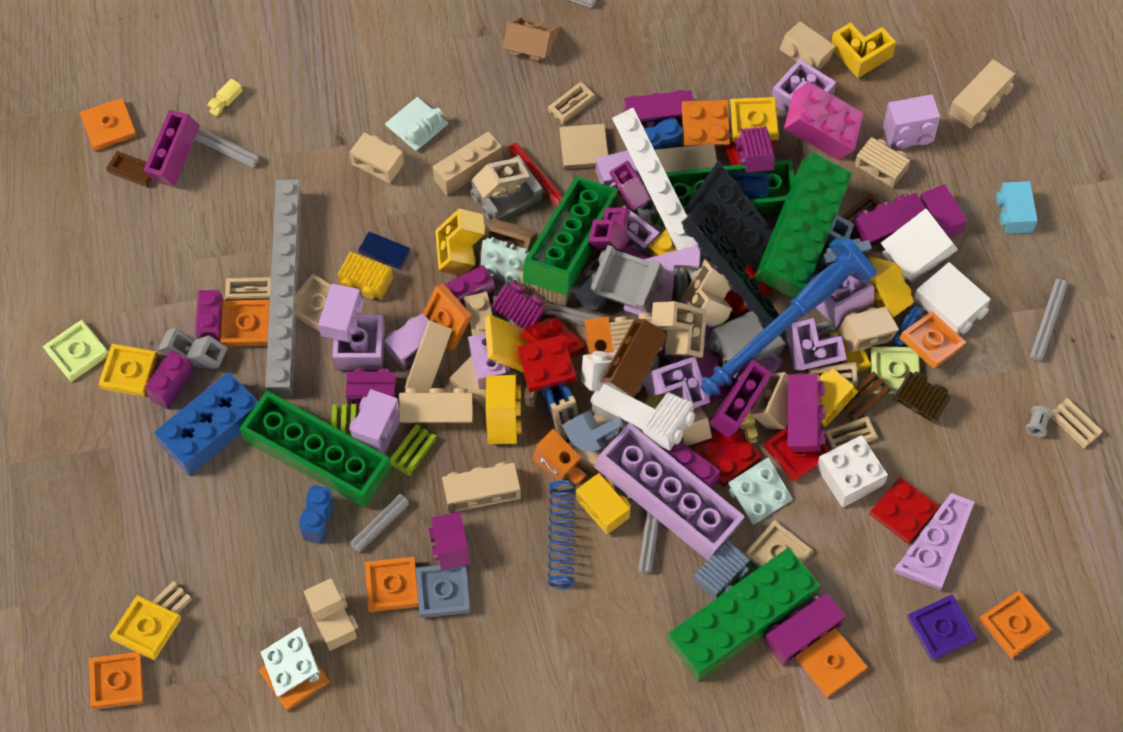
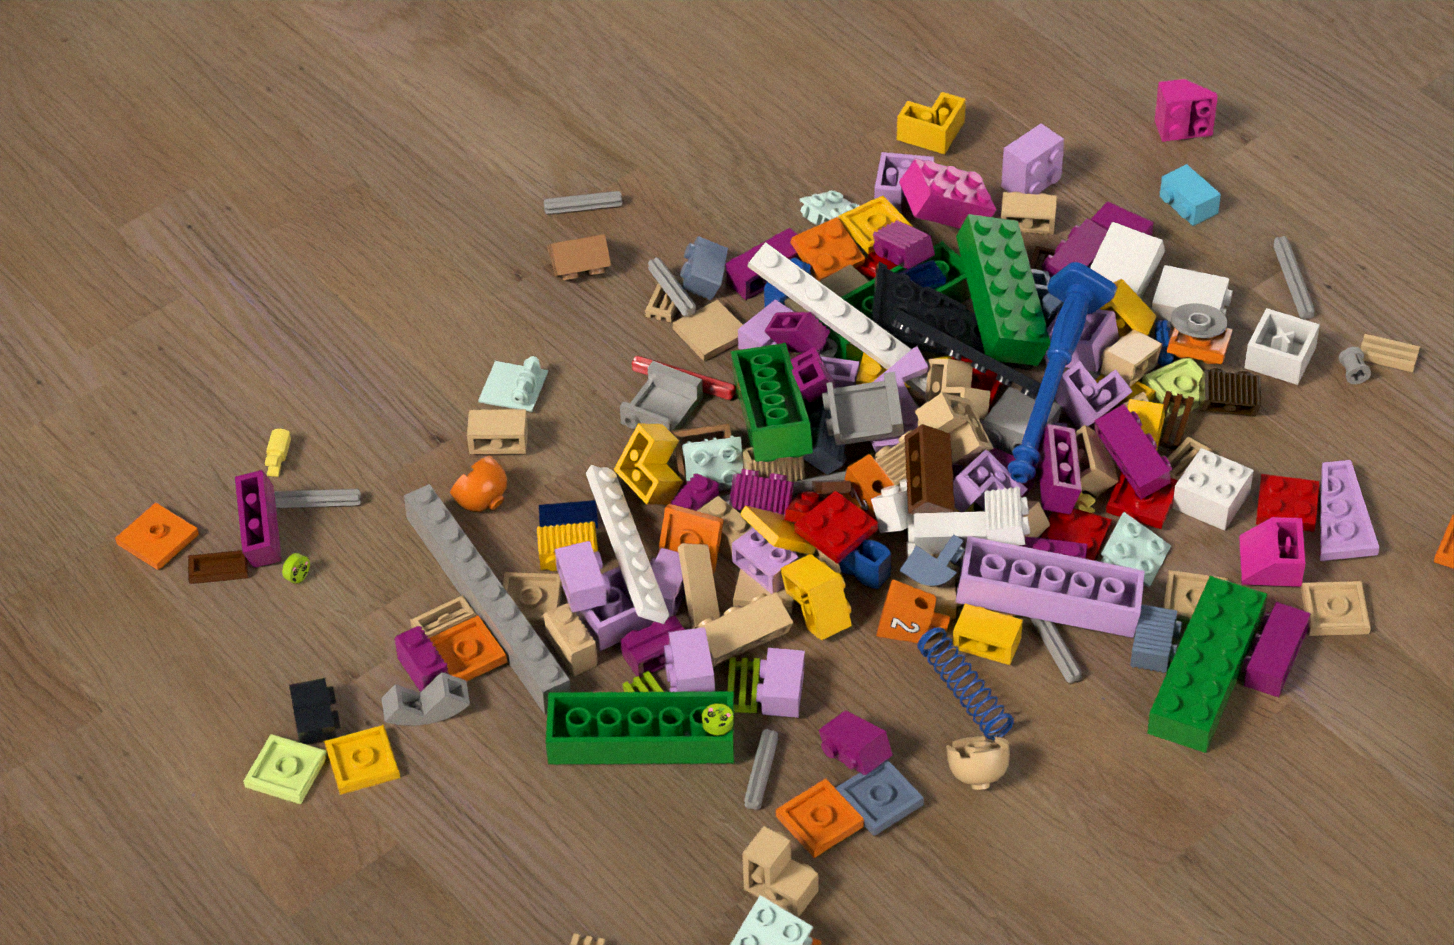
camera: 30 degrees left, 15 degrees down
(117, 317) = (313, 711): none -> black brick
(169, 379) = (421, 742): magenta brick -> none
(177, 198) = (296, 568): none -> lime tile
(206, 423) = (498, 763): blue brick -> none
(314, 518) = (688, 790): blue brick -> none
(316, 354) = (570, 639): none -> tan brick
(337, 197) = (481, 487): none -> orange cylinder
(361, 474) = (717, 719): none -> lime tile
(398, 299) = (627, 544): none -> white plate
(435, 462) = (782, 682): none -> lavender brick
(466, 163) = (600, 395): tan brick -> none
(481, 487) = (846, 681): tan brick -> none
(501, 178) = (654, 385): tan brick -> none
(525, 601) = (978, 761): none -> tan cylinder
(563, 408) = (884, 568): tan tile -> none
(570, 325) = (830, 486): none -> reddish brown tile
(576, 88) = (672, 287): none -> light grey axle
(610, 92) = (704, 267): none -> sand blue brick
(737, 84) = (825, 206): none -> light aqua hinge
(807, 45) = (870, 140): tan brick -> none
(831, 663) = (1324, 668): orange plate -> none
(857, 550) = (1273, 553): none -> dark pink slope
(876, 617) = (1336, 608): none -> tan tile
(937, 325) = (1199, 320): none -> light grey dish
(942, 627) = (1406, 584): dark purple plate -> none
(982, 94) = (1080, 114): tan brick -> none
(990, 377) = (1281, 346): none -> white brick
(1062, 132) = (1184, 110): none -> dark pink slope

